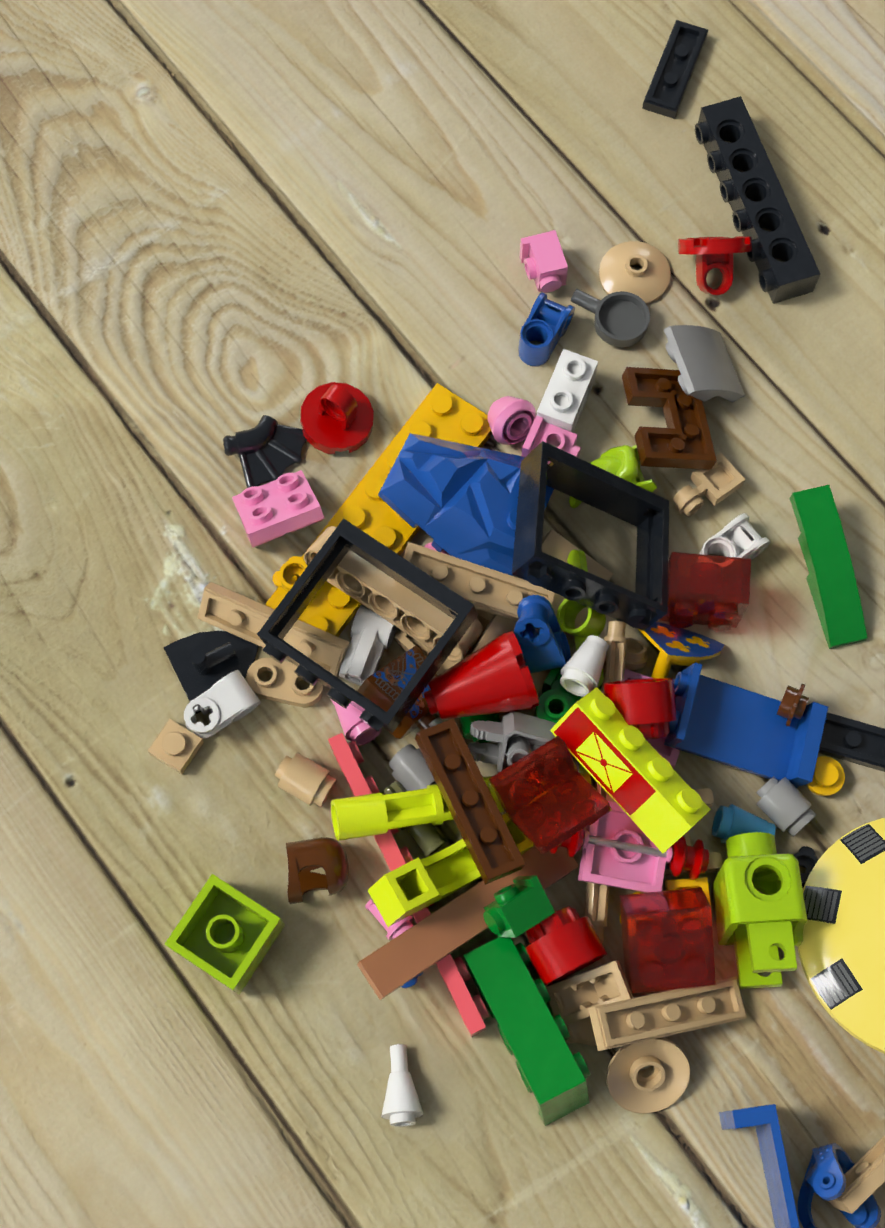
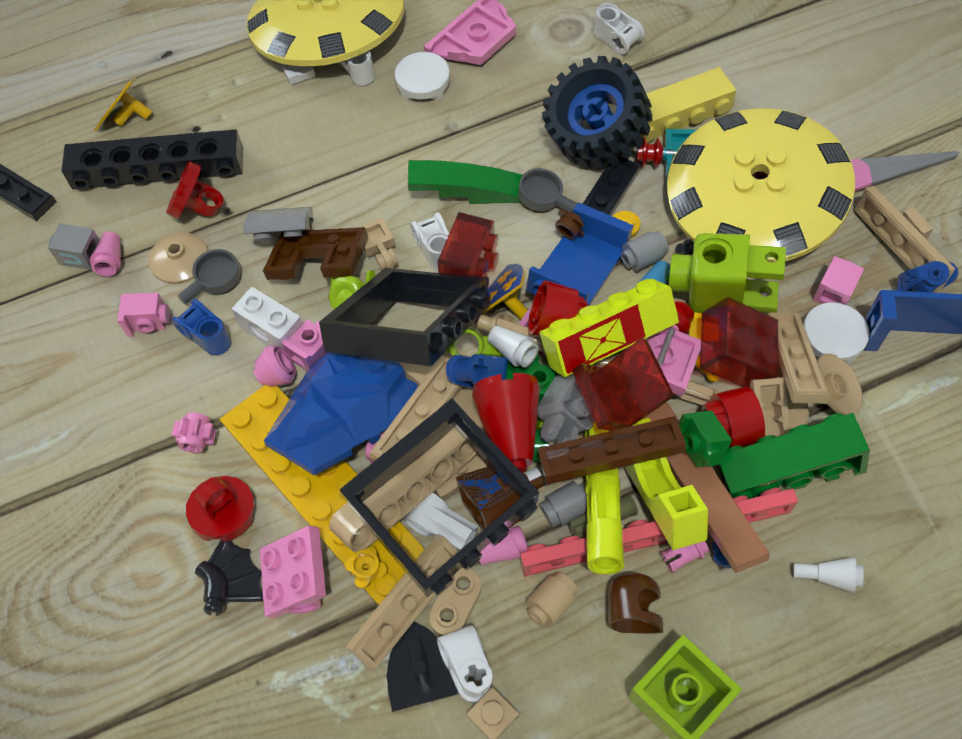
camera: 75 degrees left, 10 degrees down
(412, 362) = (193, 432): none -> bright pink gear
(612, 161) = (73, 245): none -> light grey brick
(612, 197) = (107, 255): none -> bright pink cone
(729, 1067) = (837, 331): none -> white tile
(804, 1065) = (838, 282): none -> bright pink brick
(827, 144) = (130, 104): none -> yellow shield
(844, 662) = (543, 191): none -> dark grey piece

